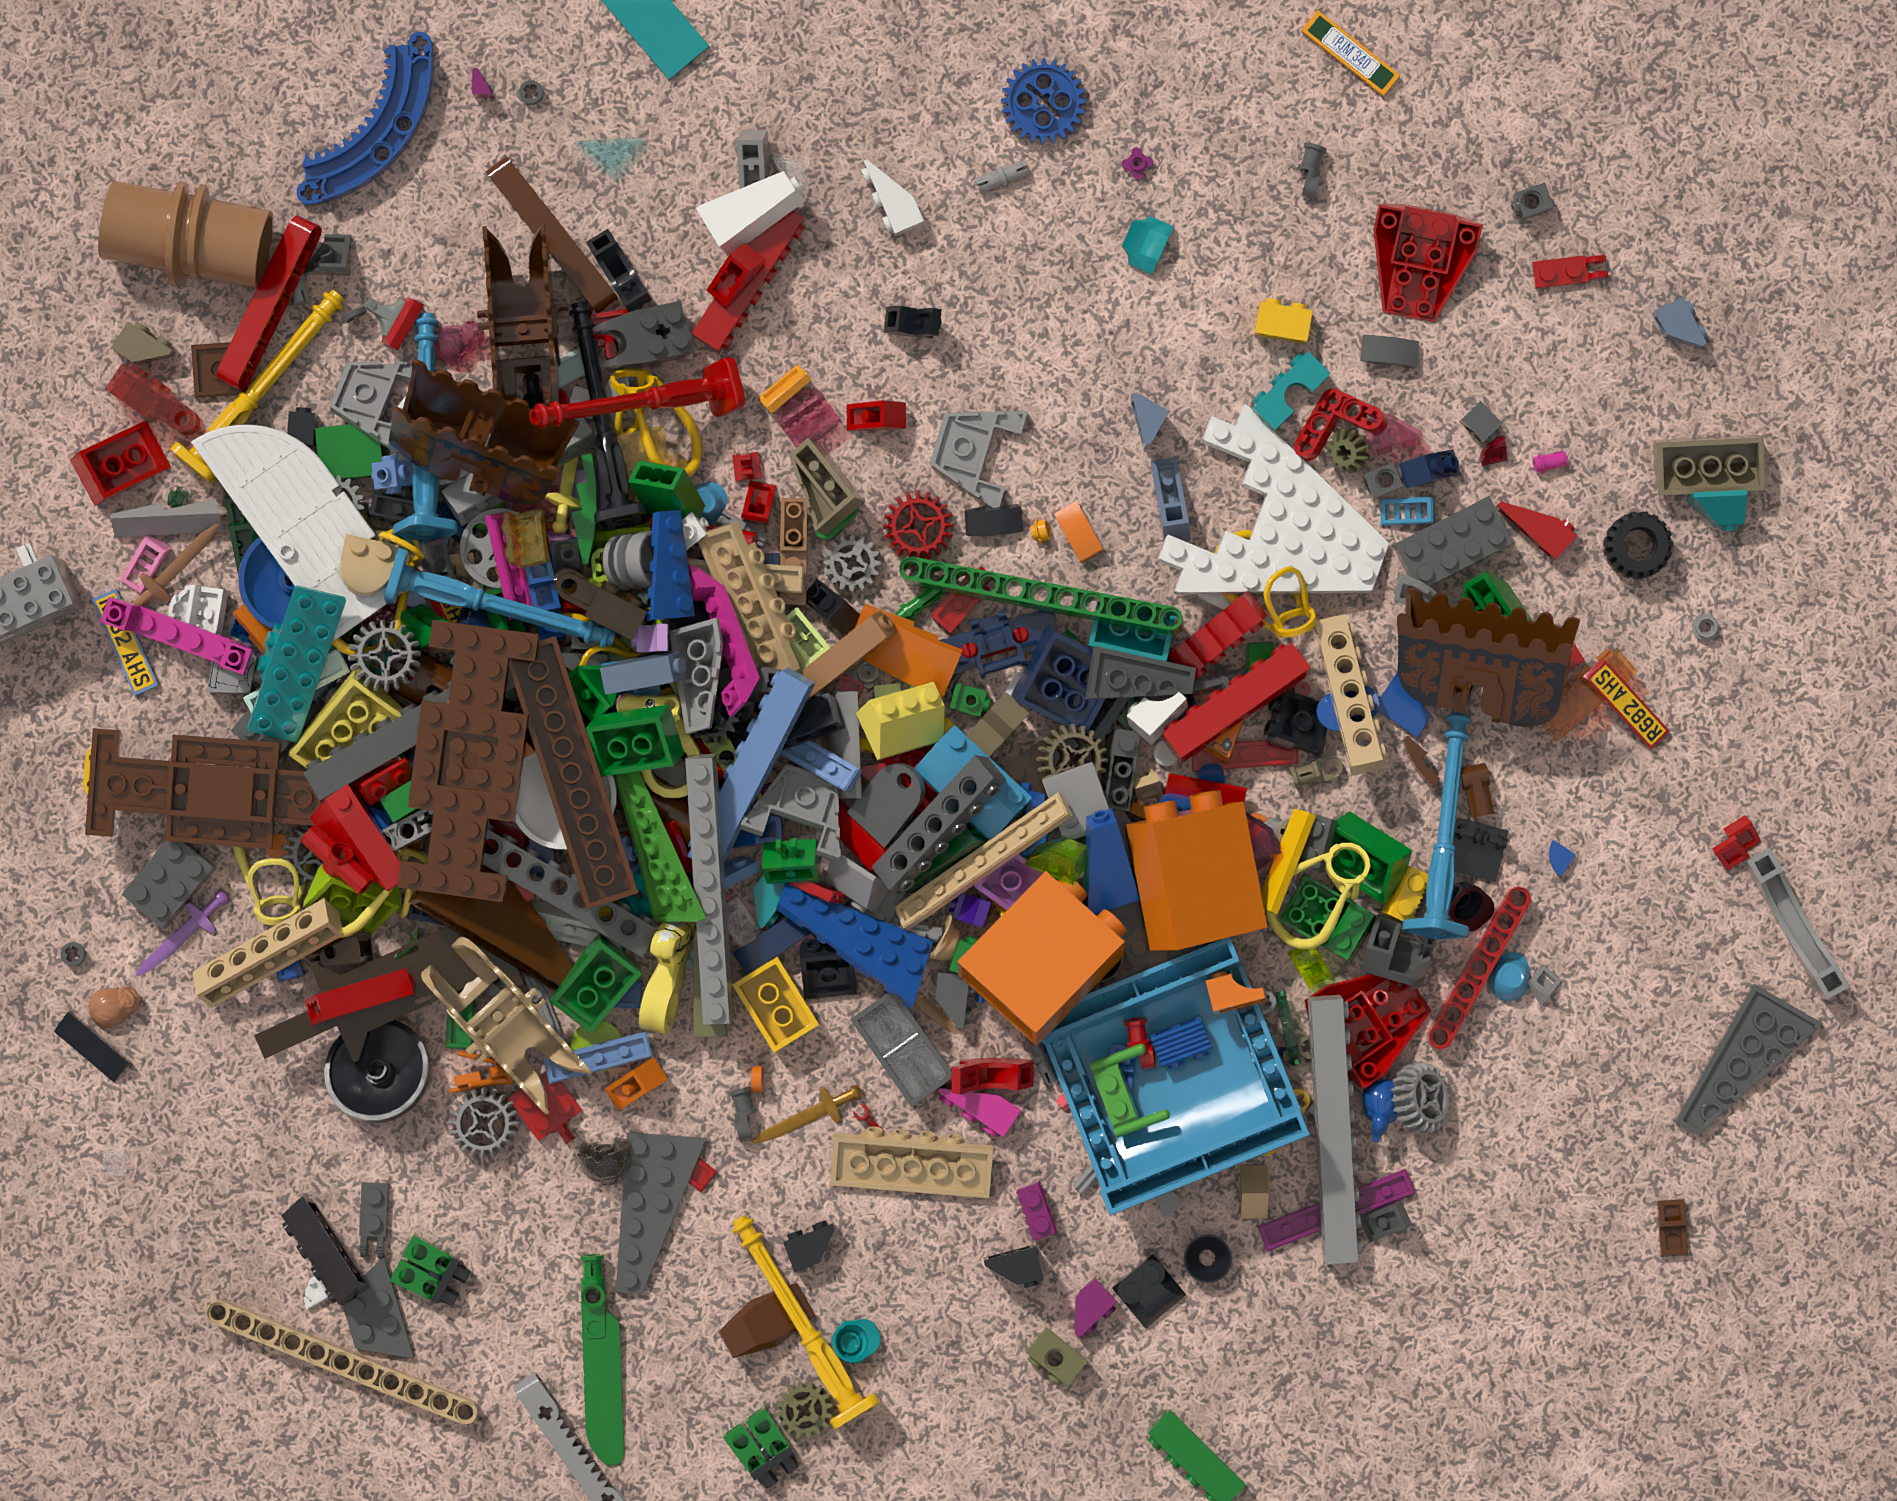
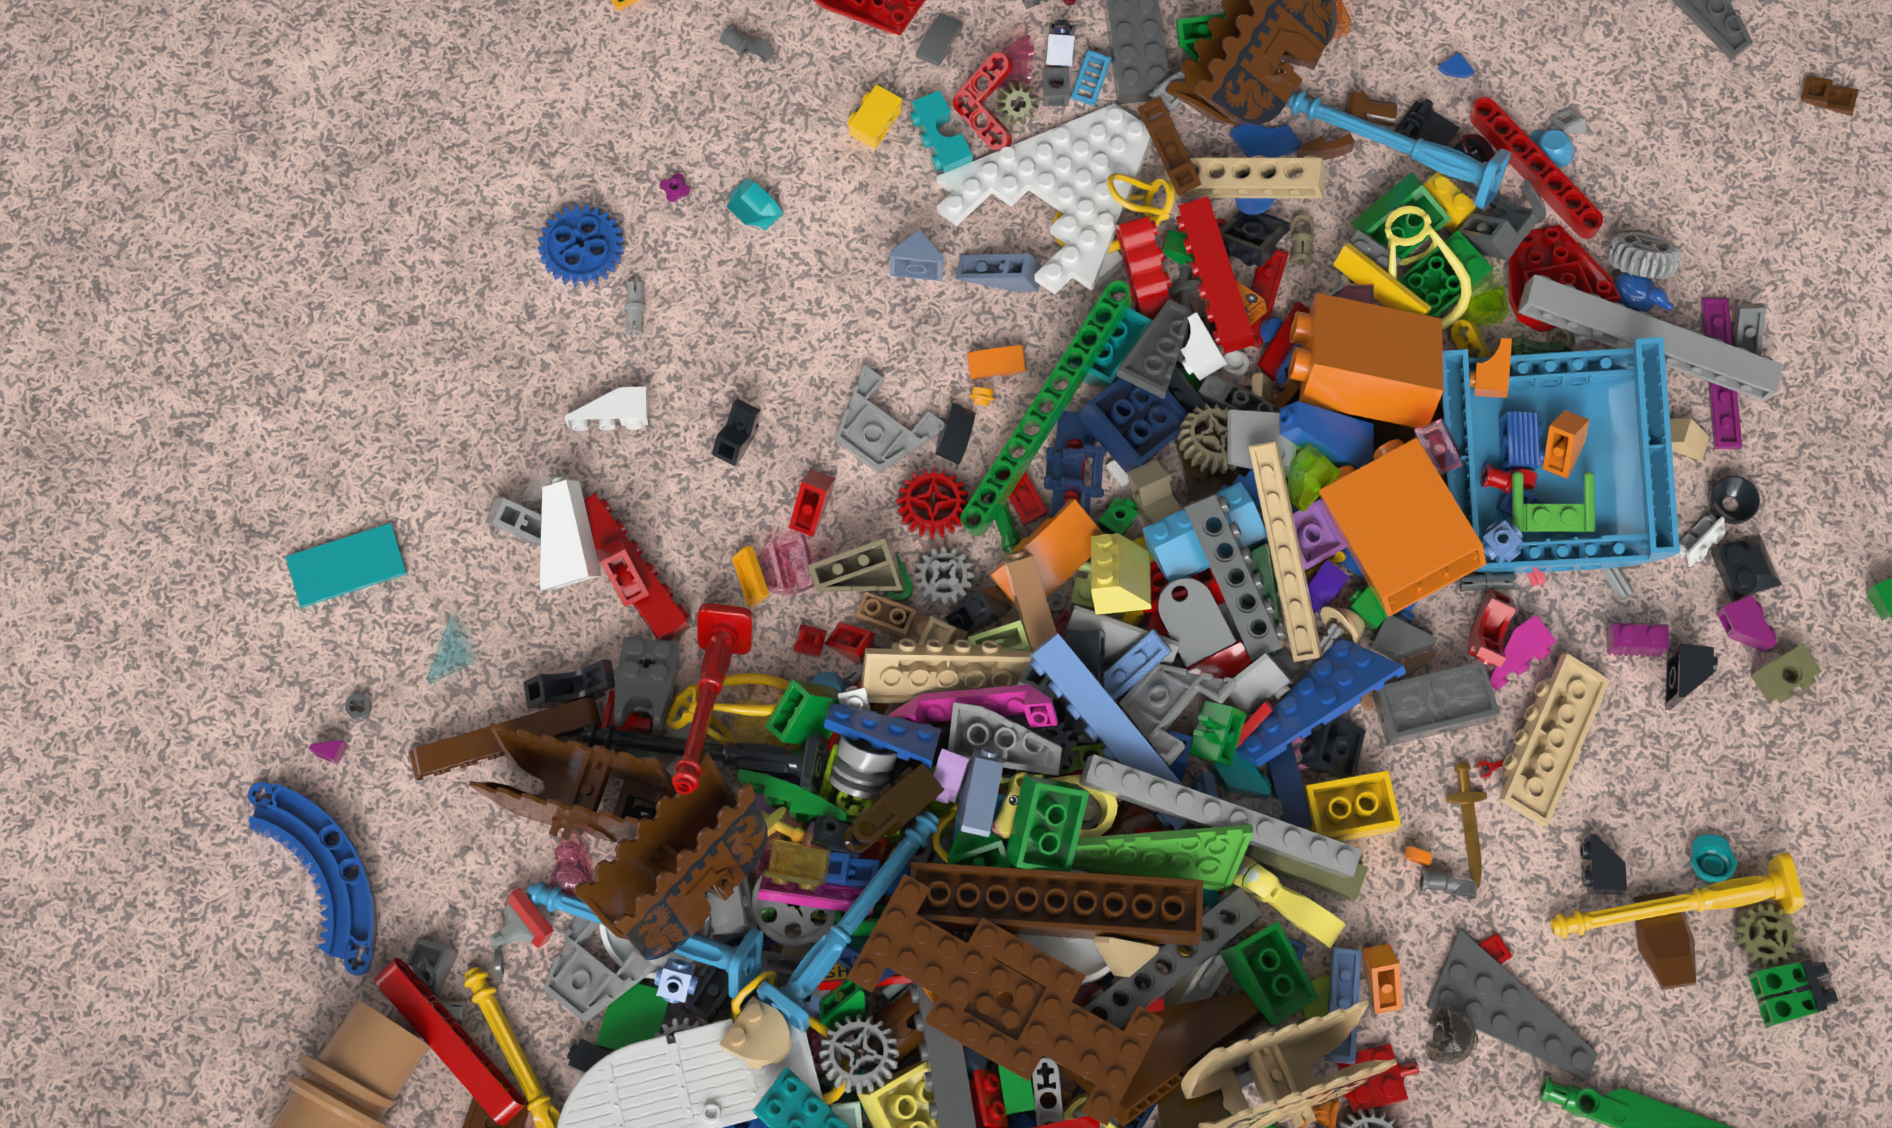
camera: 70 degrees left, 15 degrees down
(551, 850) = (1124, 956): none -> tan slope
(1075, 1064) = (1498, 550): none -> medium blue brick
(1126, 967) = (1440, 446): none -> clear pink slope
(1169, 1246) = (1708, 531): none -> white hinge
(1191, 1082) = (1565, 443): none -> orange slope
(1271, 964) = (1474, 336): none -> yellow beam
(1352, 614) = (1169, 146): none -> reddish brown slope

